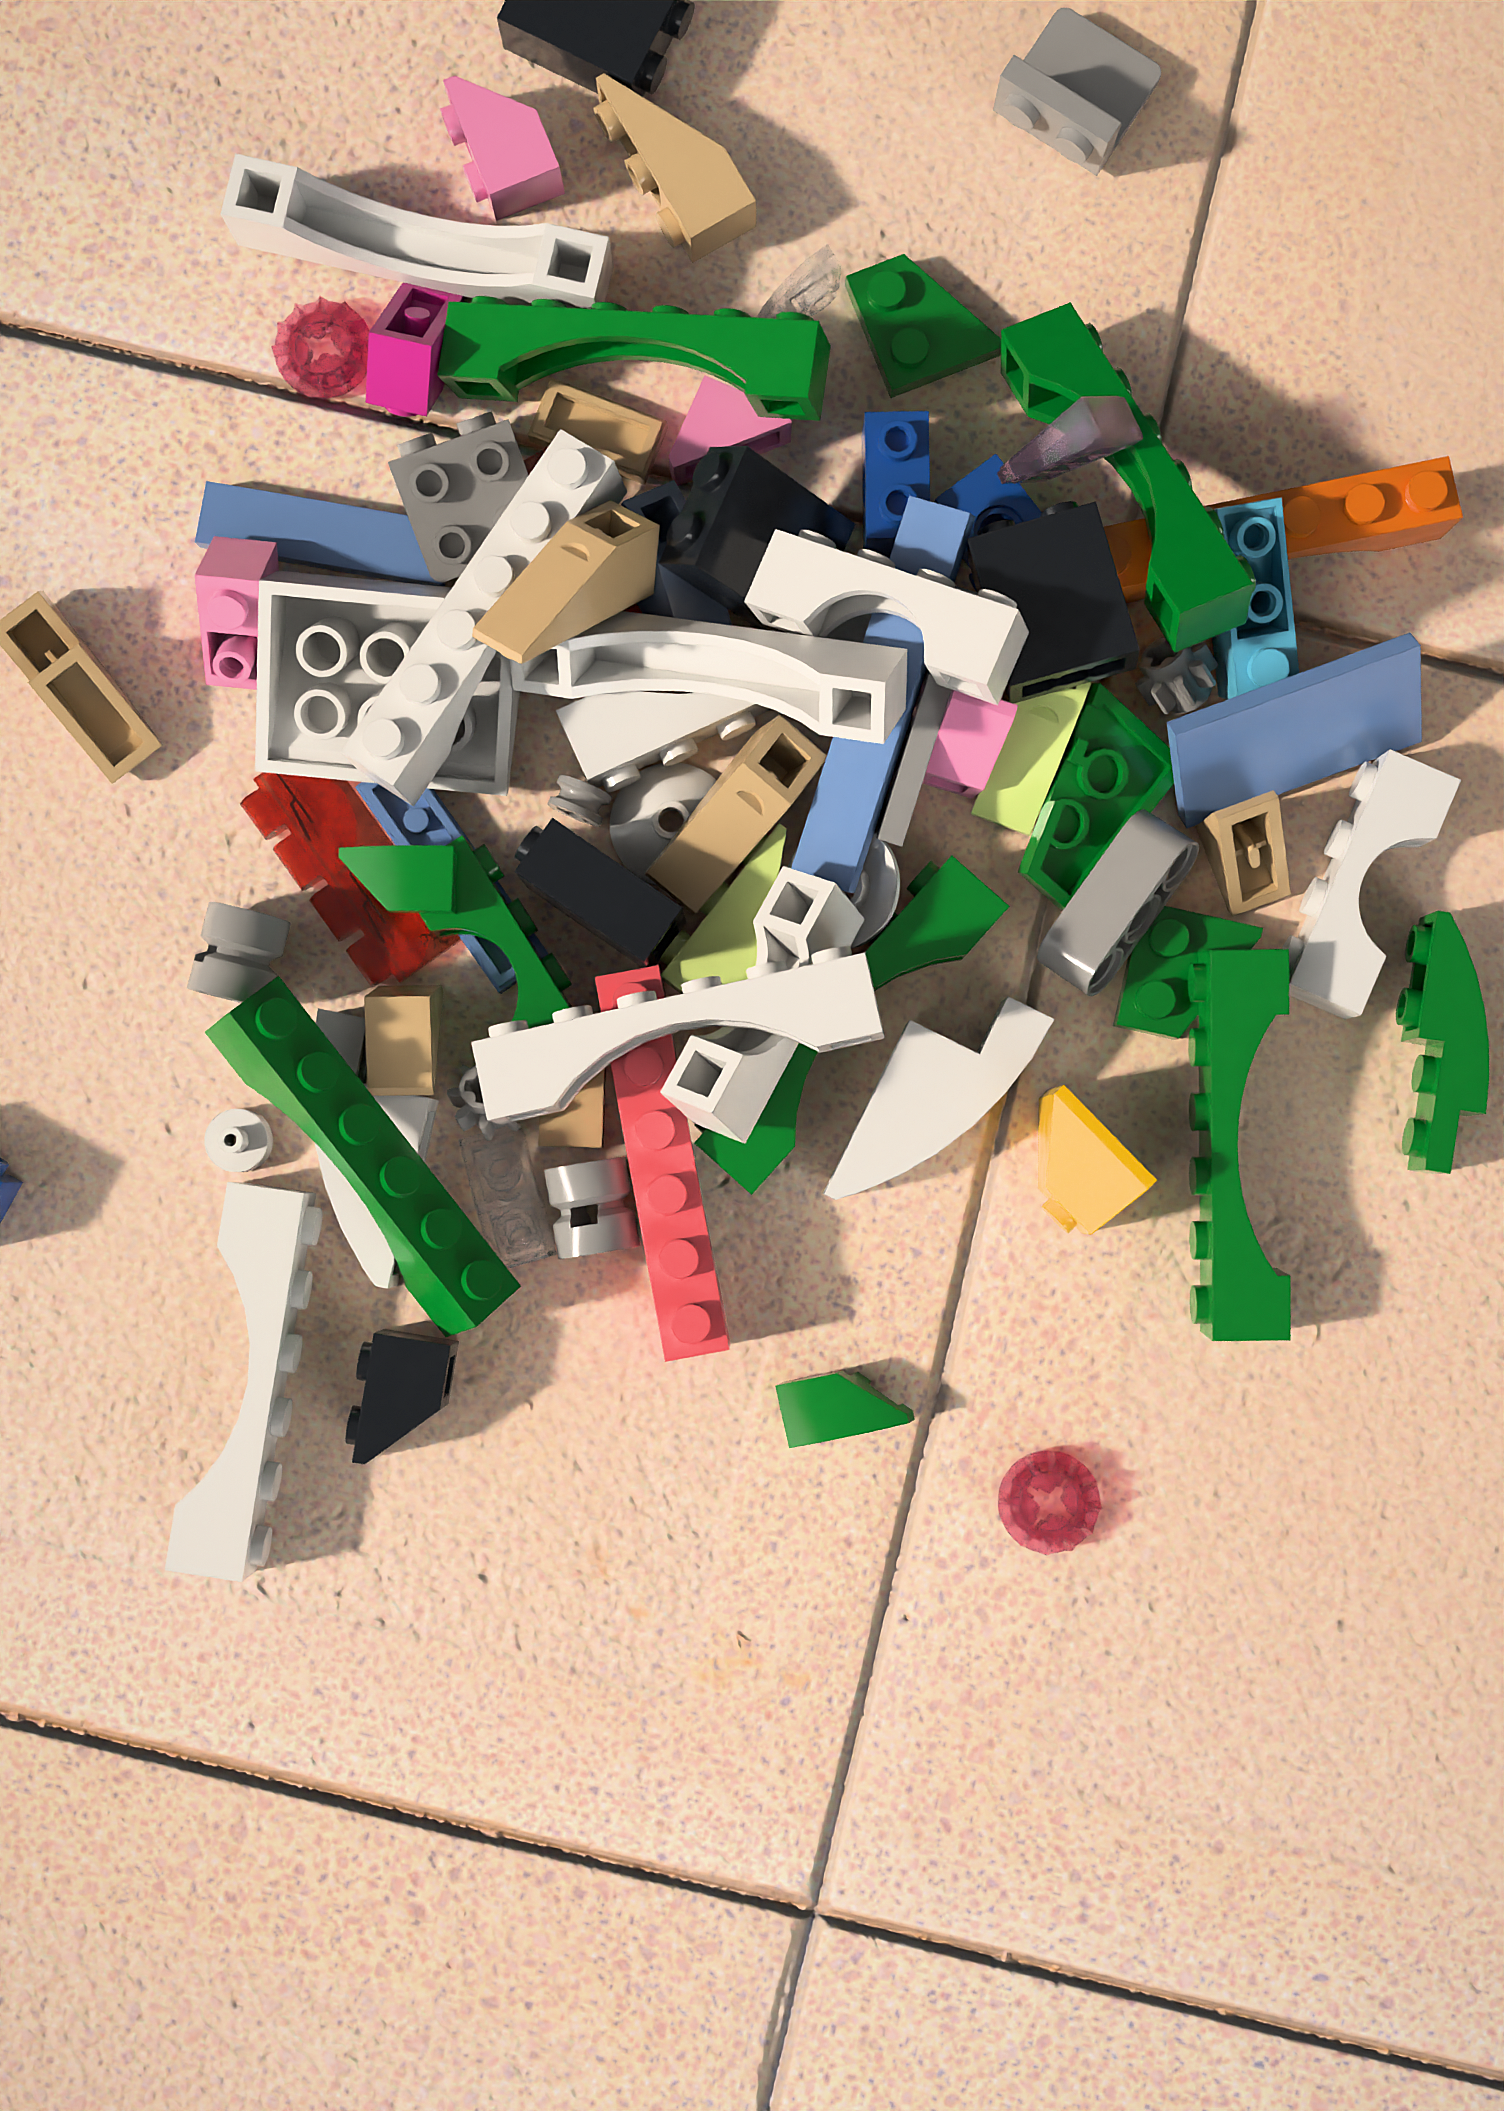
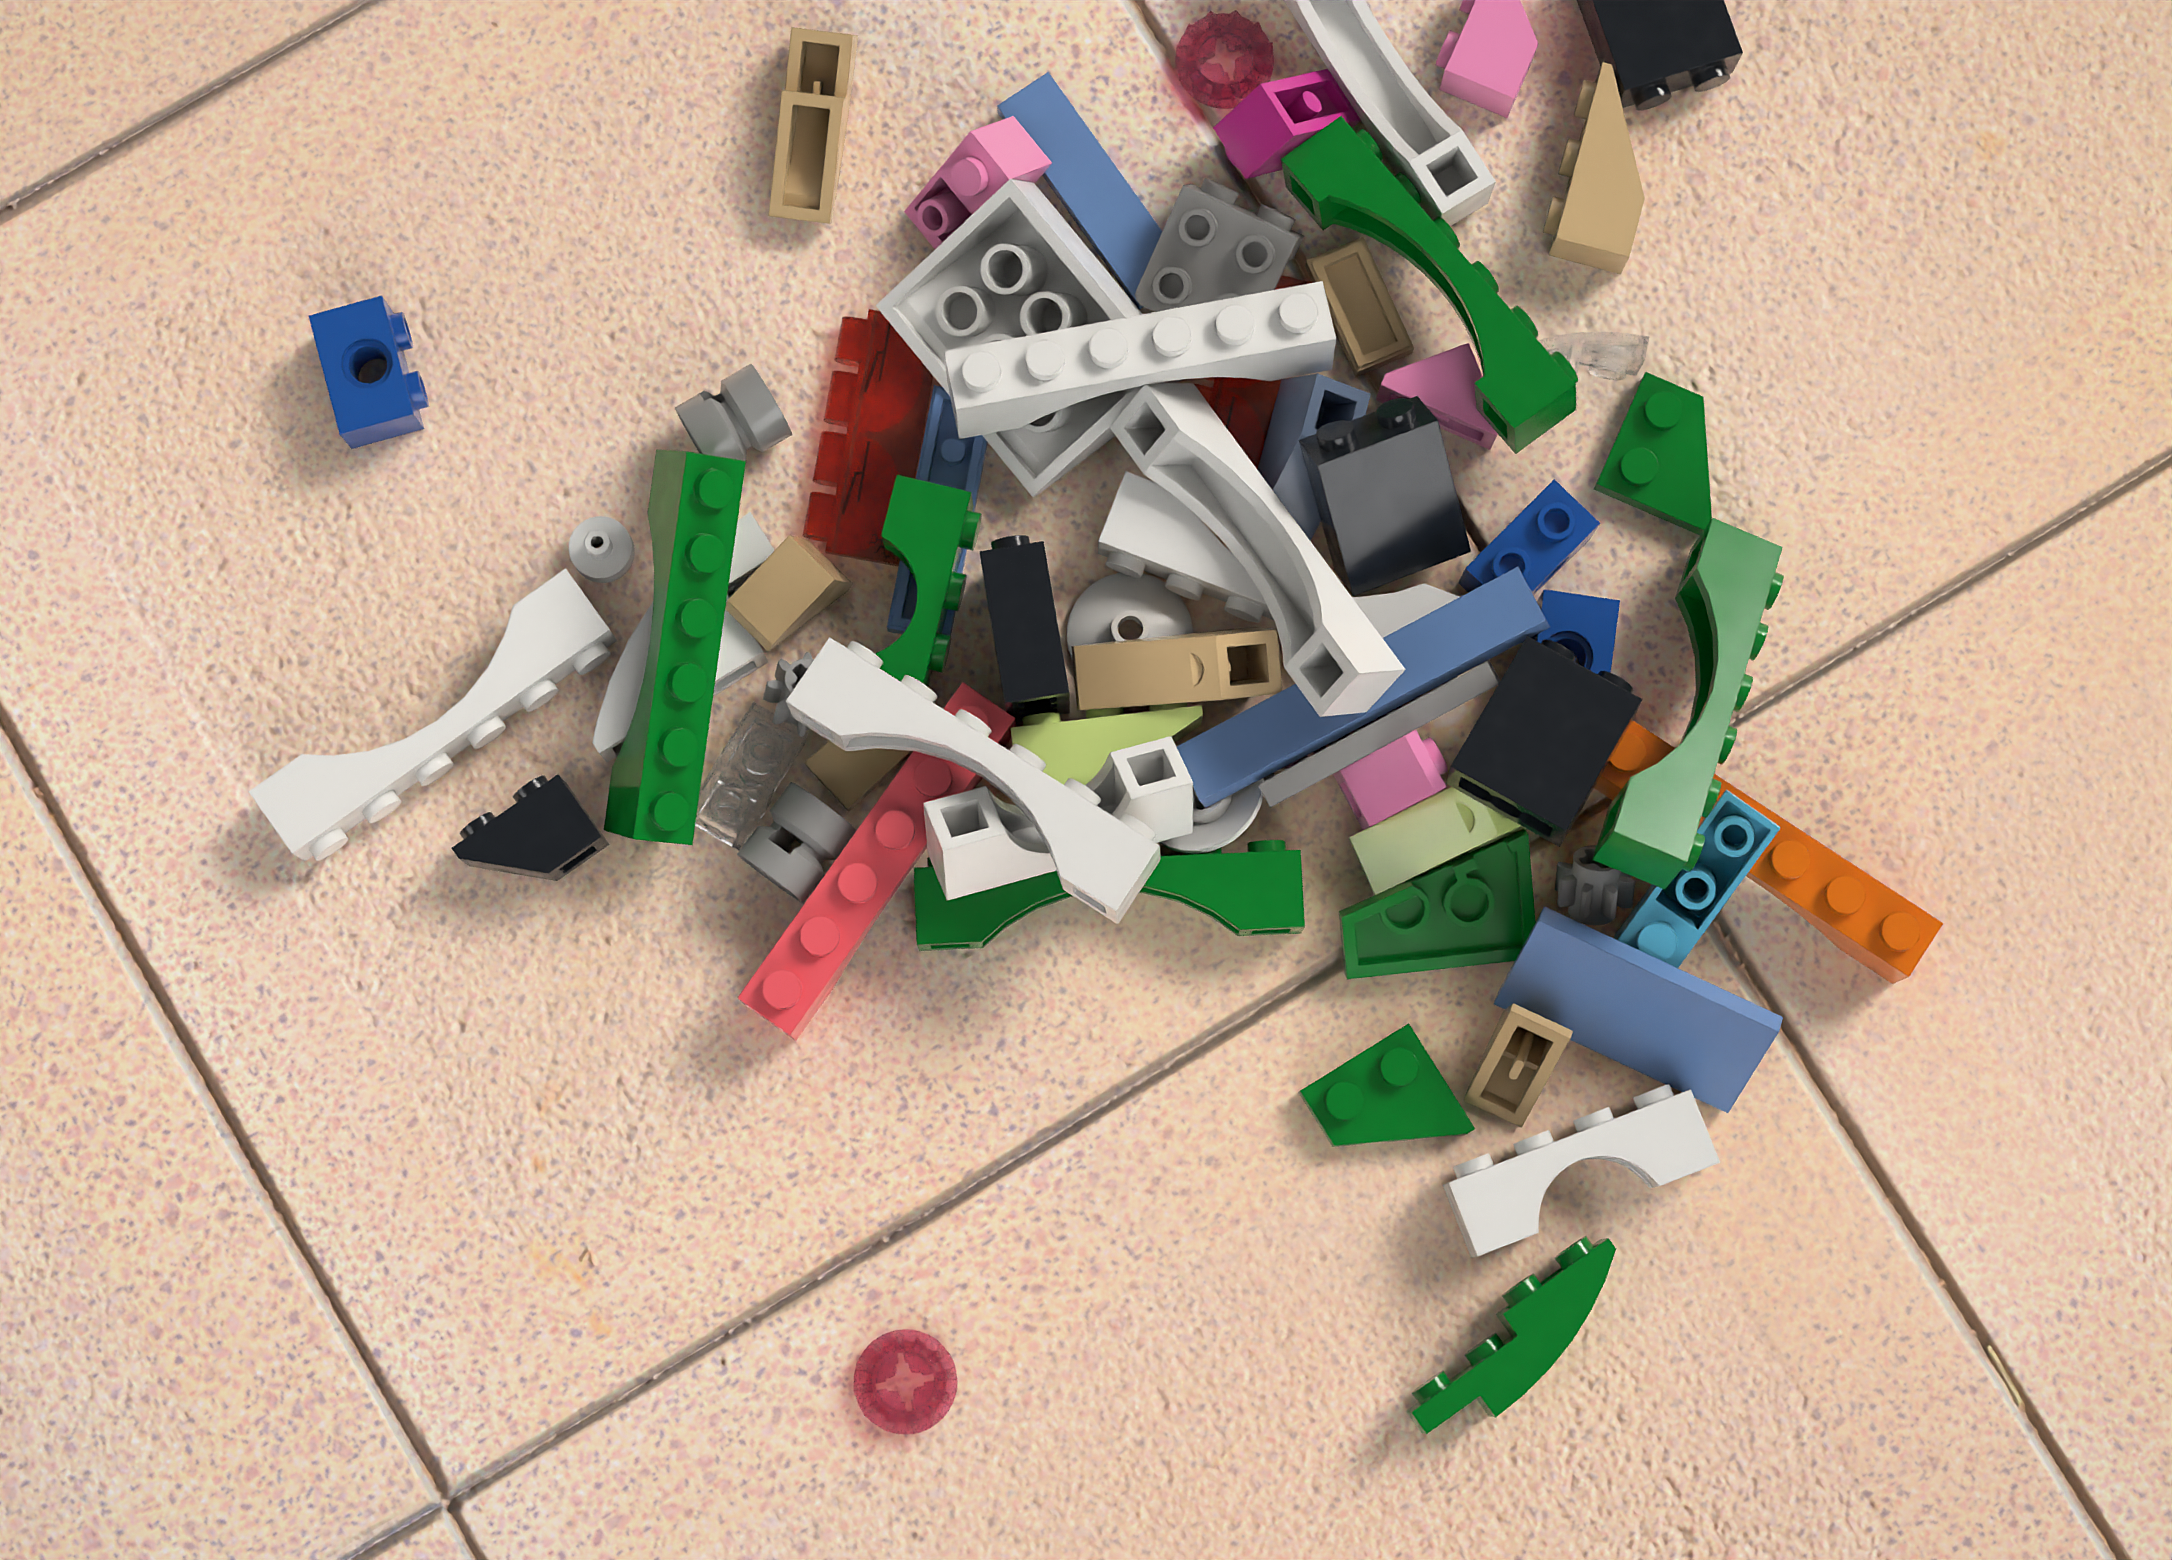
camera: 40 degrees right, 5 degrees down
(407, 876) = (904, 482): green slope -> none
(576, 581) = (1225, 396): tan slope -> none
(579, 800) = (1080, 551): light grey bush -> none
(814, 588) = (1387, 567): white arch -> none
(835, 1408) = (823, 1158): green slope -> none
(934, 1095) = (1115, 1009): white slope -> none
(1077, 89) = (1947, 403): light grey bracket -> none
(1078, 437) = (1678, 643): slope -> none
(1083, 1165) = (1169, 1163): yellow slope -> none
(1117, 902) = (1386, 1003): light grey beam -> none
(1238, 1288) = (1194, 1367): green arch -> none

